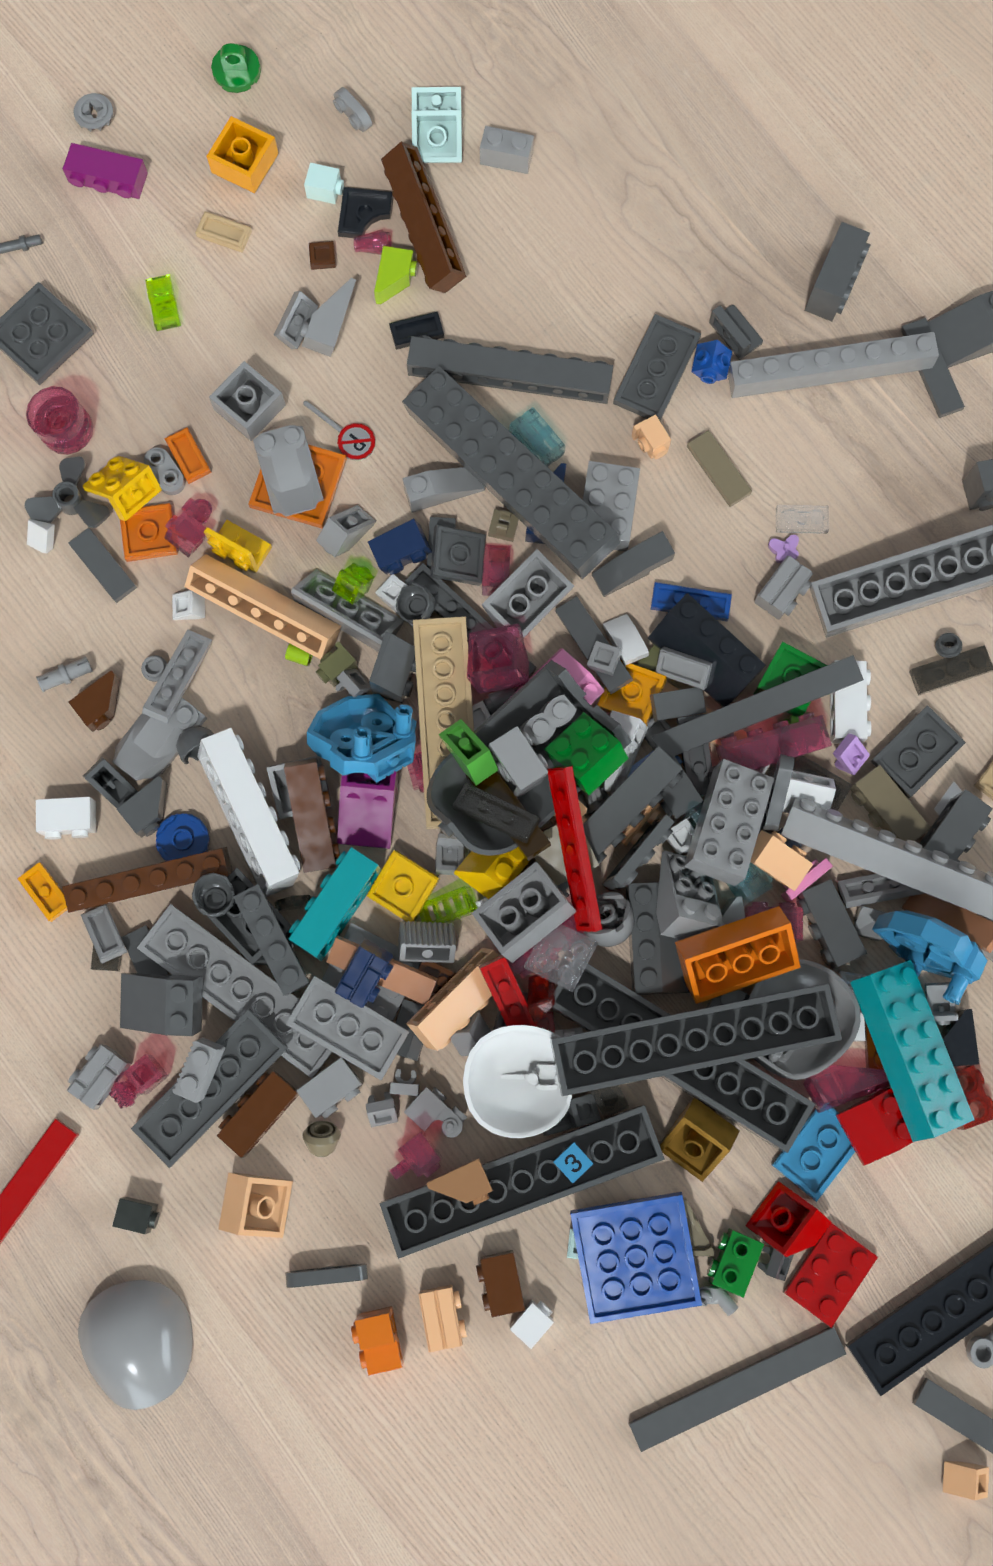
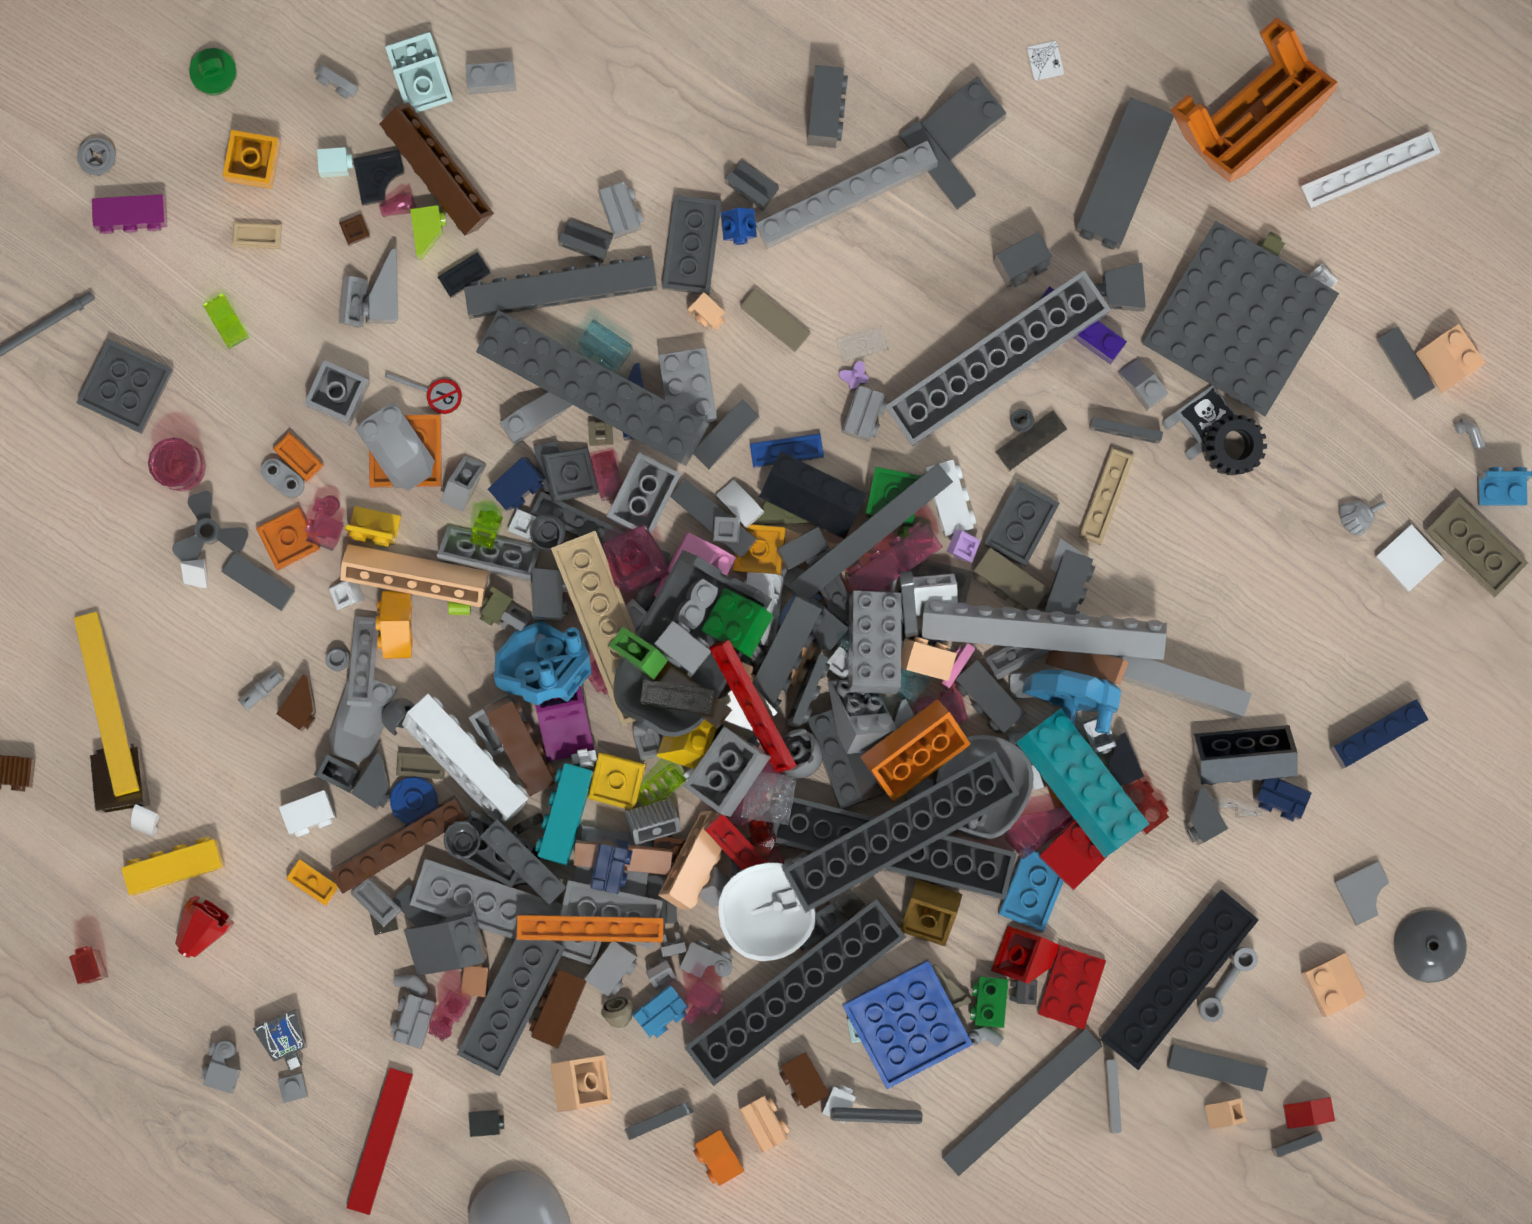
camera: 20 degrees left, 5 degrees up
(113, 1035) = (413, 984): none -> light grey arm
(125, 484) = (253, 503): yellow bracket -> none
(176, 1052) = (475, 980): none -> nougat brick
(198, 1070) = (499, 987): light grey brick -> none
(200, 804) = (418, 765): none -> dark tan tile
(224, 650) = (395, 624): none -> light orange brick
(319, 1036) = (589, 928): none -> orange plate
(367, 1153) = (660, 1011): none -> dark azure brick
(376, 851) = (584, 758): none -> white plate
(464, 1183) = (748, 1008): medium nougat slope -> none
(549, 333) = (585, 240): none -> dark grey panel
(569, 1351) = (876, 1115): none -> dark grey axle
(573, 1162) = (831, 963): dark azure tile -> none
(594, 312) = (620, 210): none -> light grey brick
(684, 668) = (797, 516): light grey tile -> none
(843, 1417) = (1113, 1096): none -> light grey tile

